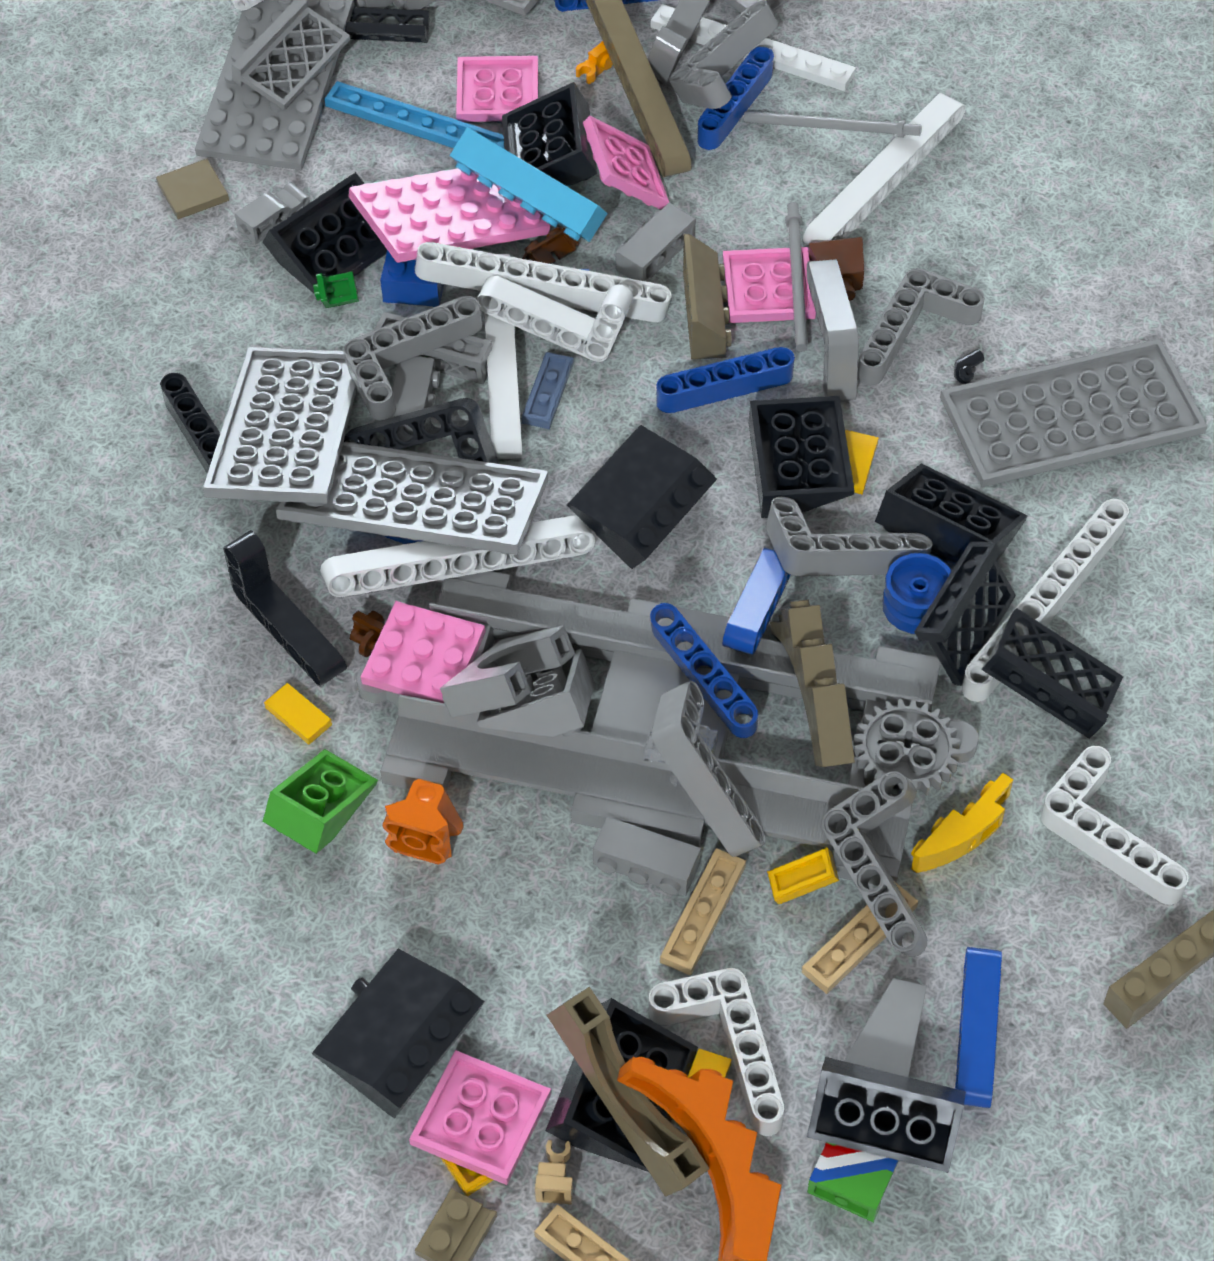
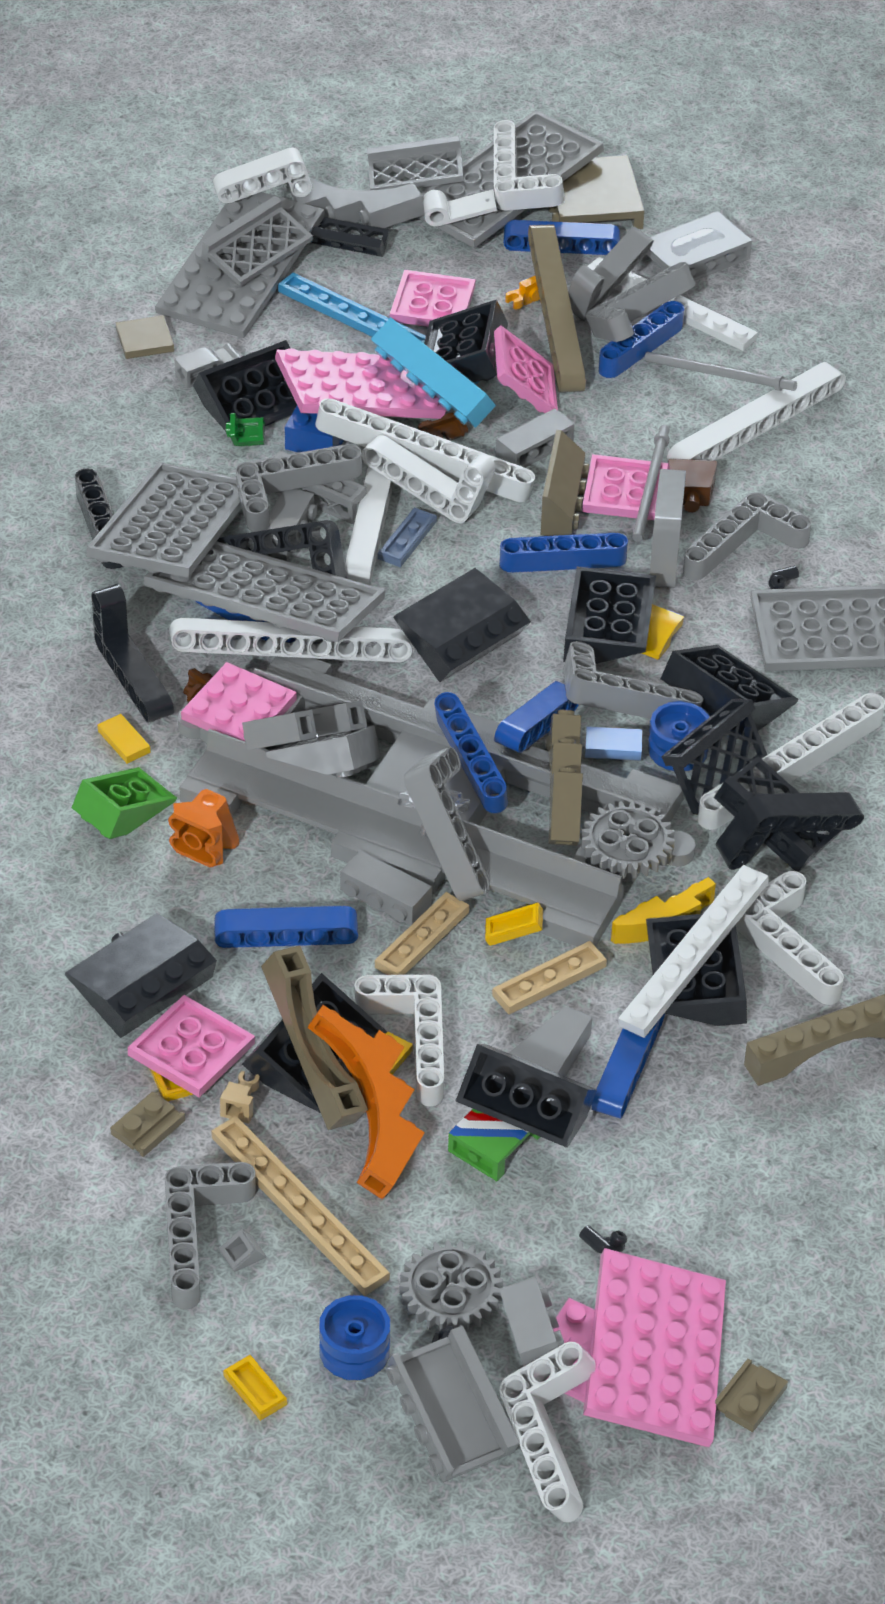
camera: 10 degrees right, 10 degrees down
(546, 931) = (285, 926): none -> blue beam
(851, 615) = (613, 743): none -> light blue brick
(870, 863) = (557, 890): light grey beam -> none
(1018, 881) = (693, 951): none -> white plate
(1025, 894) = (718, 988): none -> black slope
(1065, 683) = (784, 814): none -> black beam

